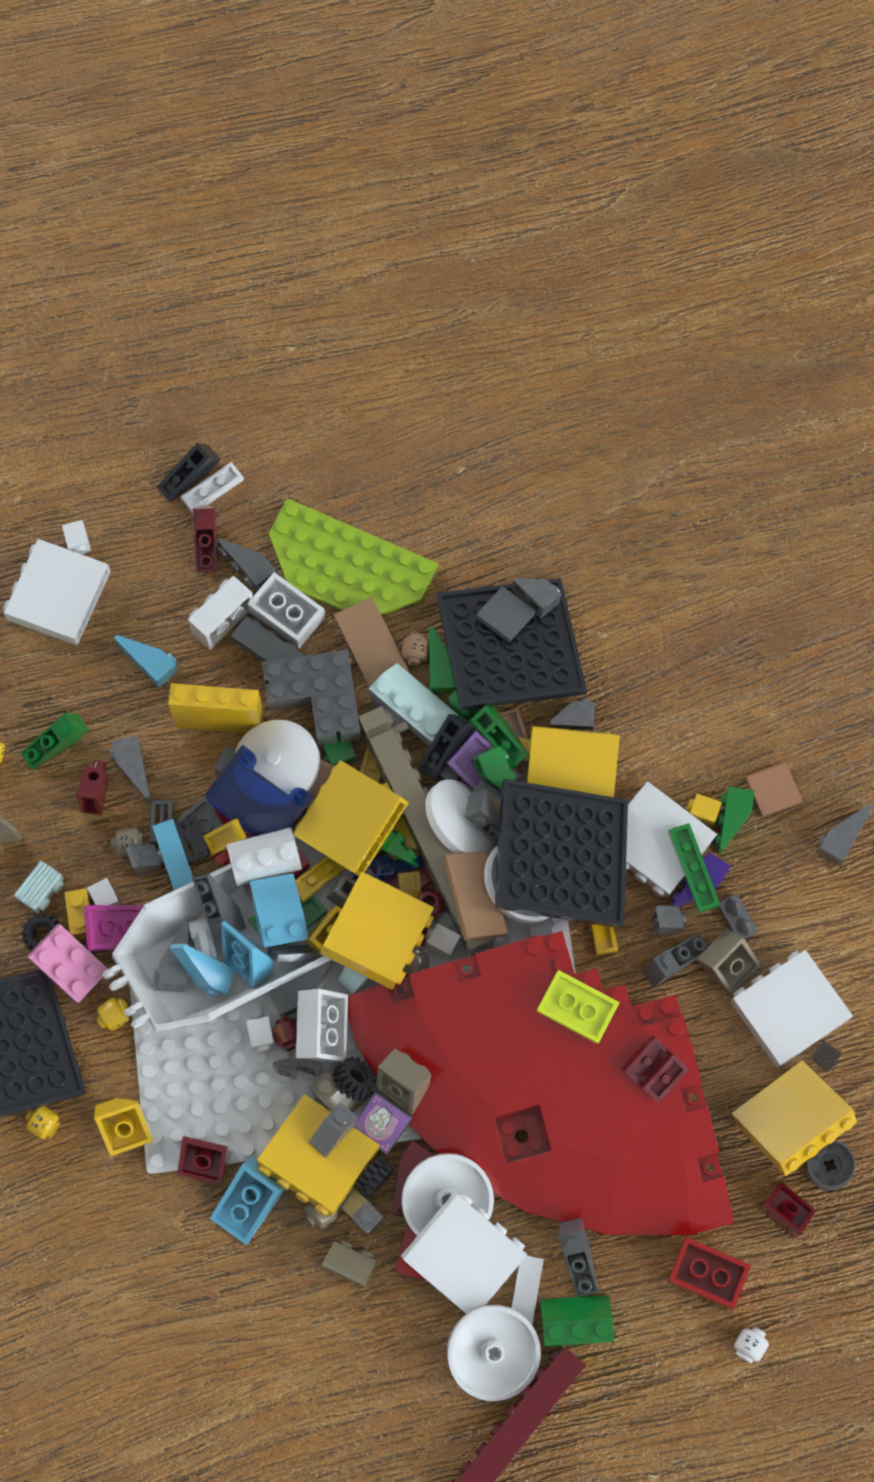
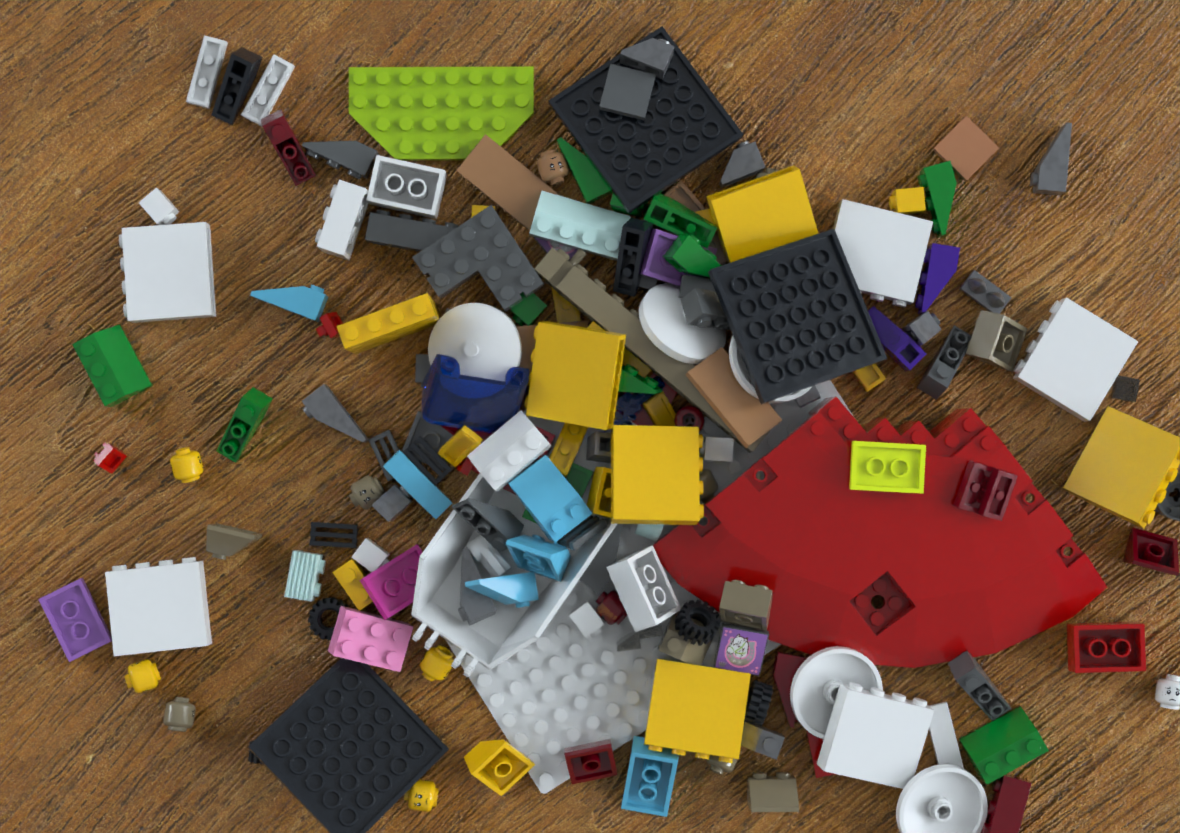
camera: 25 degrees left, 15 degrees up
(66, 857) = (313, 533): none -> black tile
(93, 788) = (307, 464): dark red torso -> none
(163, 693) = (330, 322): none -> red tile
(170, 452) = (206, 72): none -> white tile
(333, 1129) = (703, 683): flat silver slope -> none
(639, 921) = (895, 341): none -> dark purple slope
(693, 868) = (927, 267): green plate -> none

